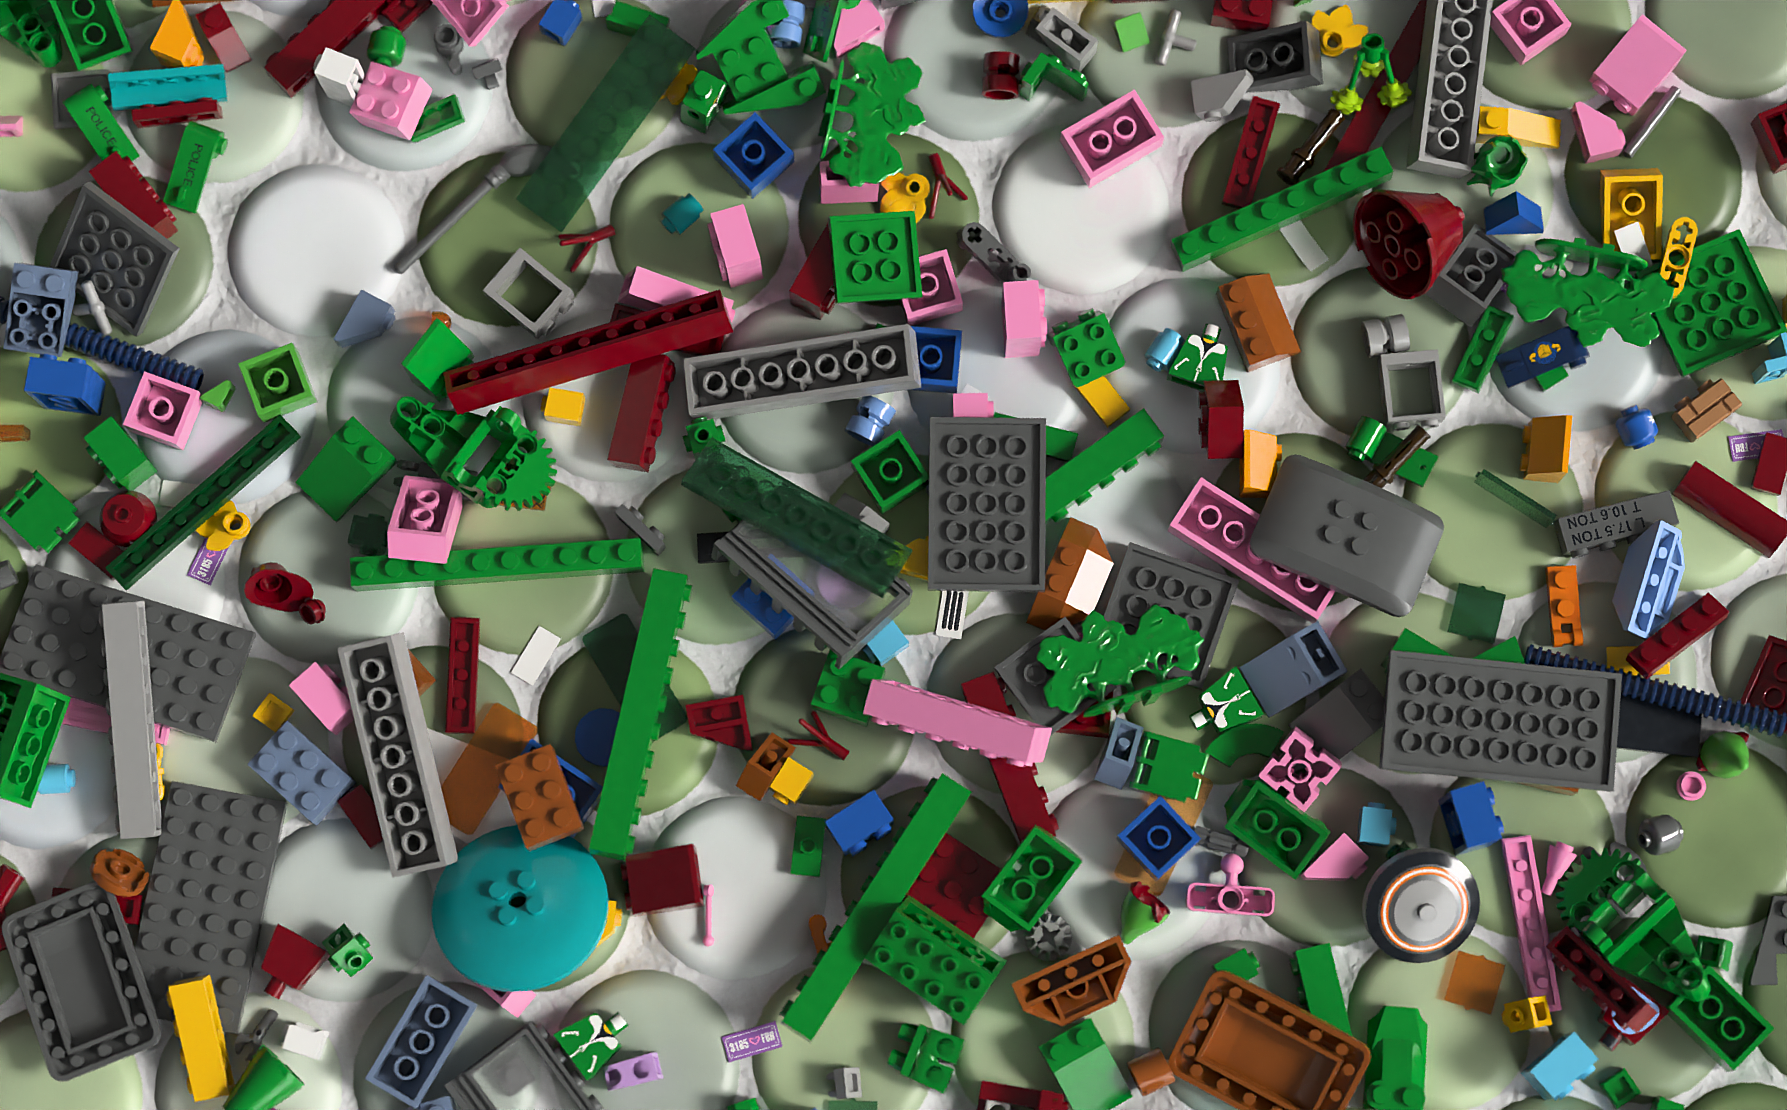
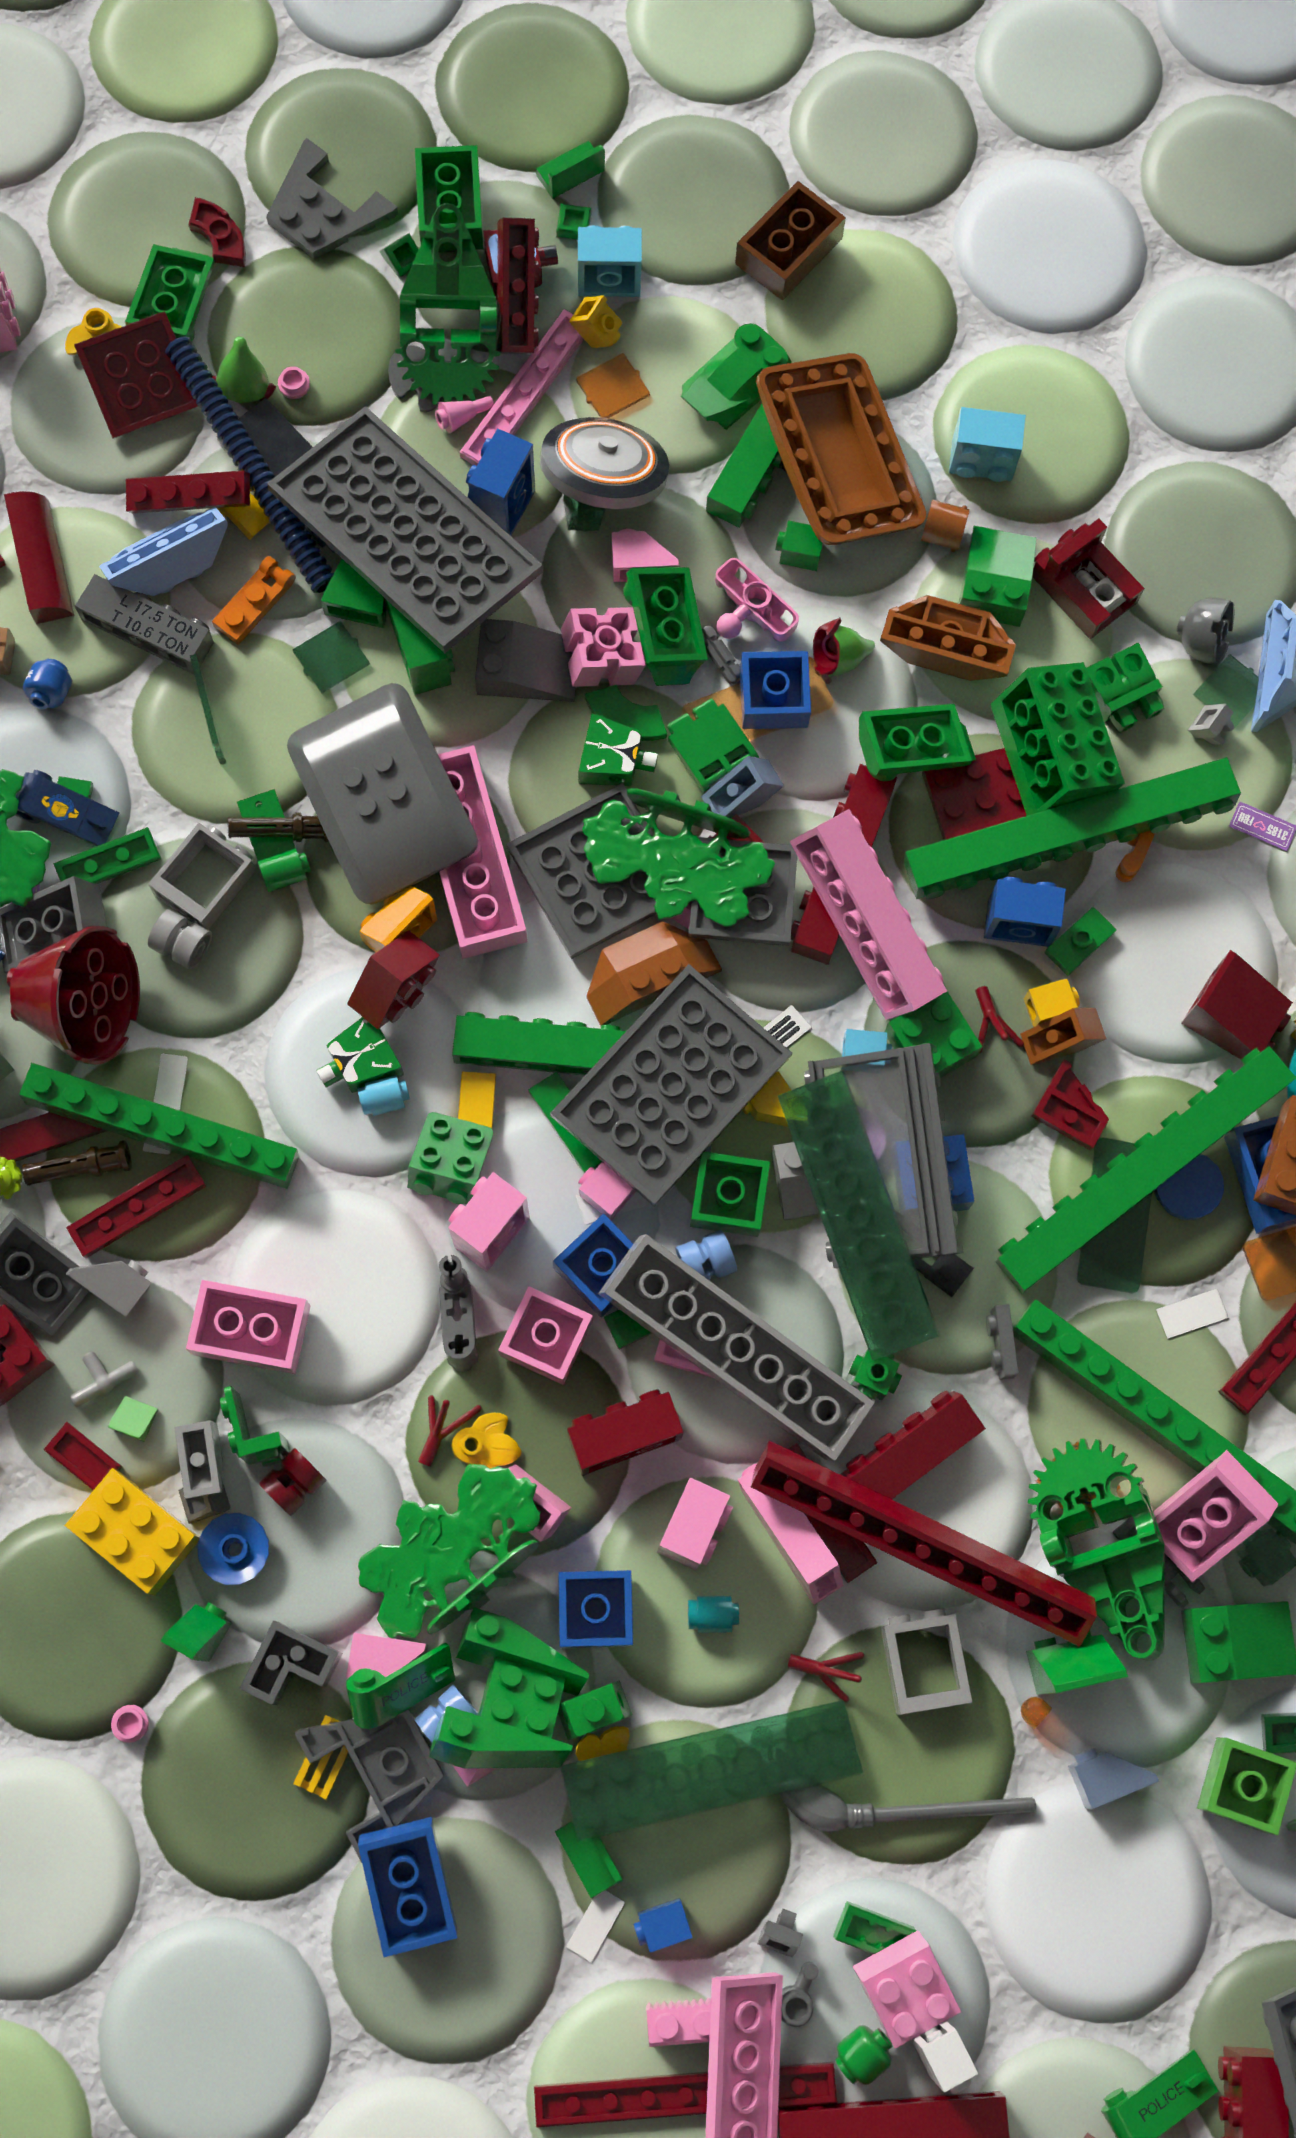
camera: 145 degrees left, 5 degrees down
(563, 406) = (982, 1521): yellow brick -> none
(708, 891) = (1234, 937): bright pink hinge -> none
(875, 257) = (575, 1391): green plate -> none
(1062, 940) = (927, 687): light grey gear -> none
(1257, 321) = (278, 1050): dark orange slope -> none
(1293, 669) = (529, 732): sand blue slope -> none
(1375, 825) = (580, 559): medium azure brick -> none
(1546, 448) = (139, 725): light orange slope -> none
(1660, 834) = (356, 364): dark grey head -> none

